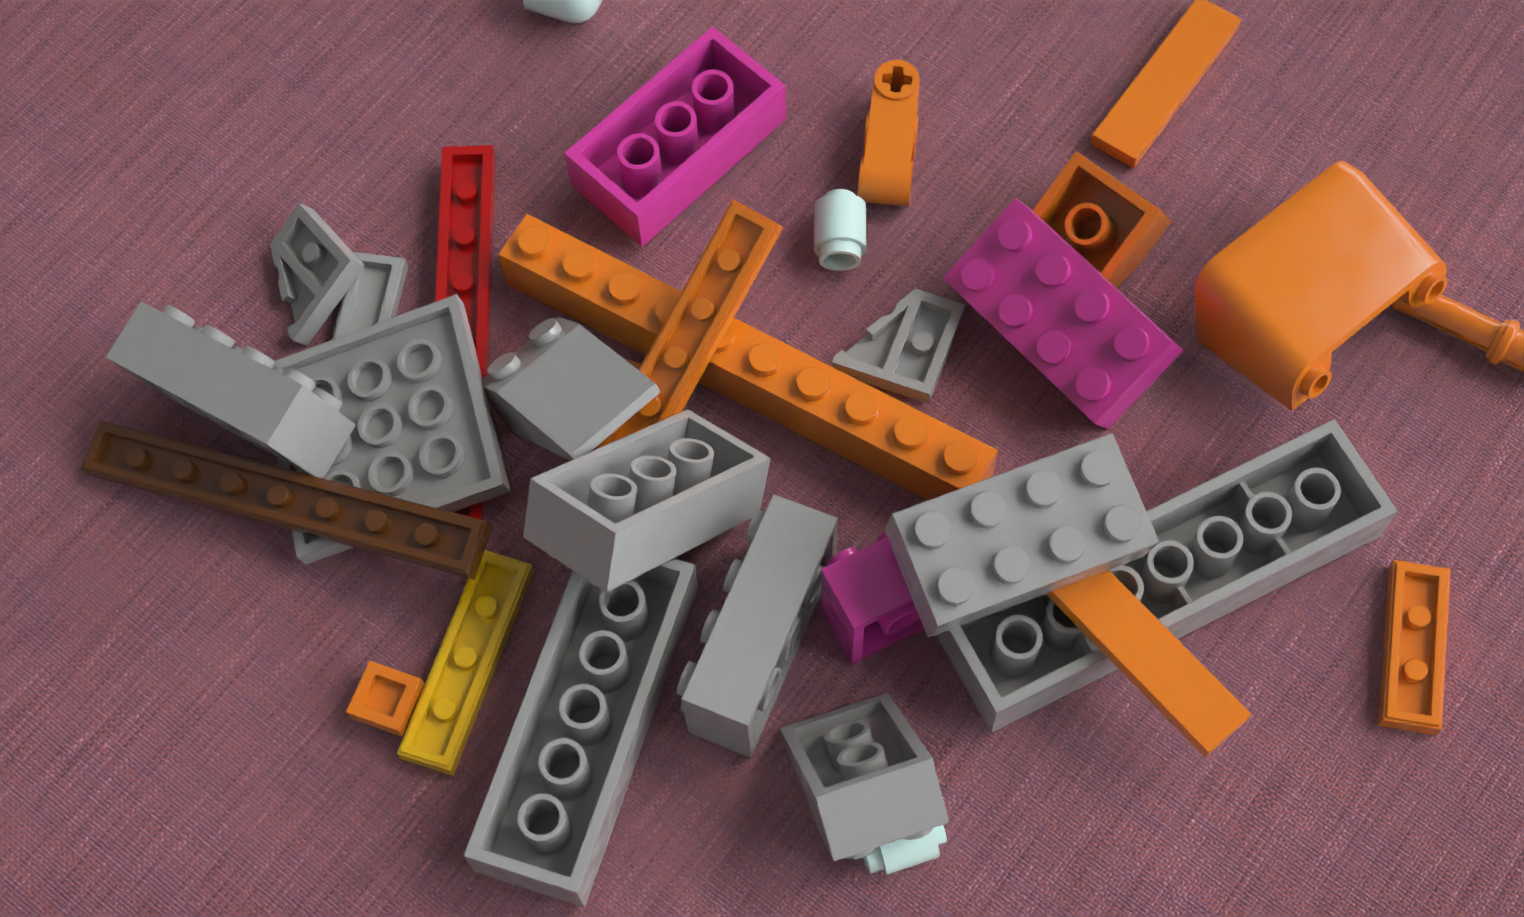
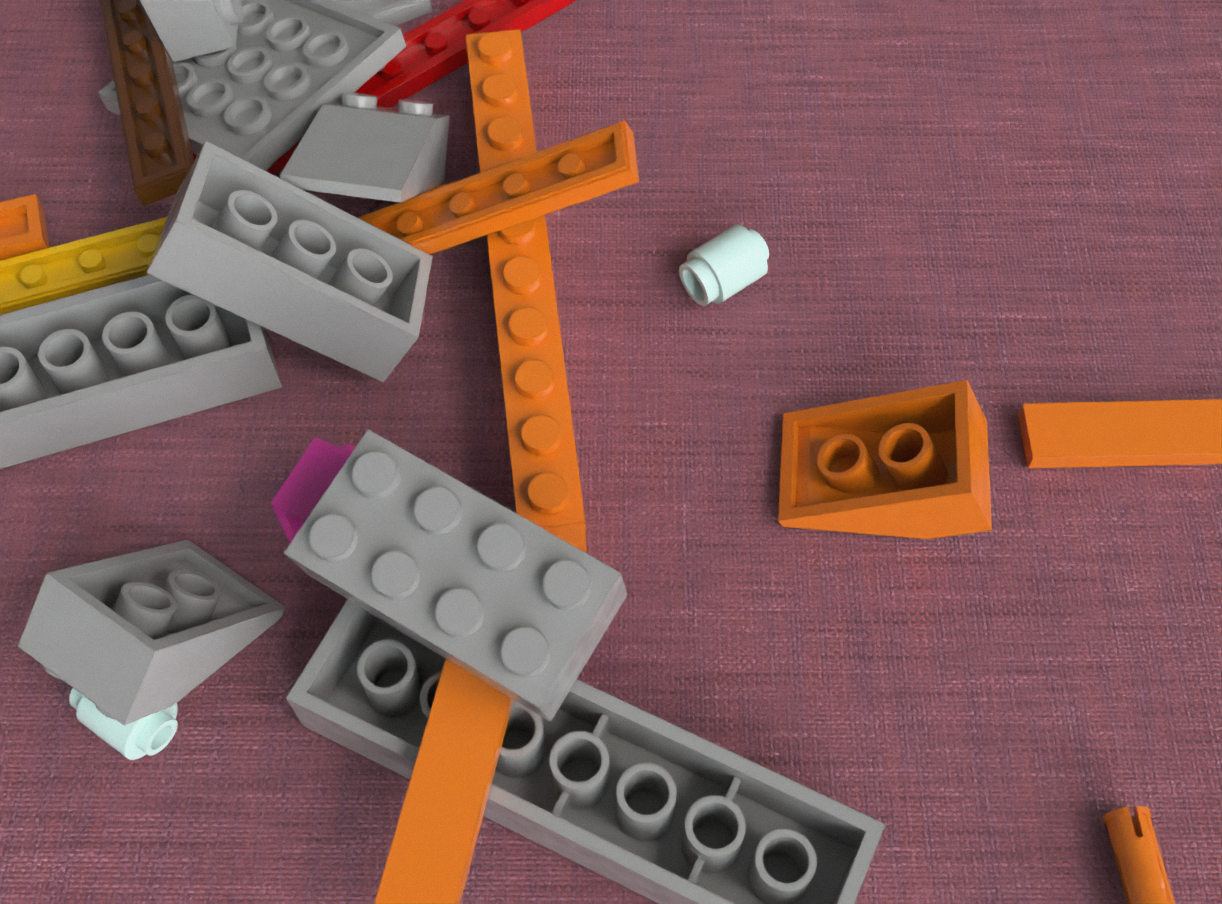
camera: 50 degrees right, 5 degrees down
(676, 136) = (702, 87): dark pink brick -> none
(759, 625) = (233, 441): light grey brick -> none
(890, 135) = (855, 243): orange piece -> none
(906, 347) = (655, 393): light grey wing -> none
(1062, 314) = (788, 494): dark pink brick -> none
(1311, 281) = (1045, 697): orange windscreen -> none

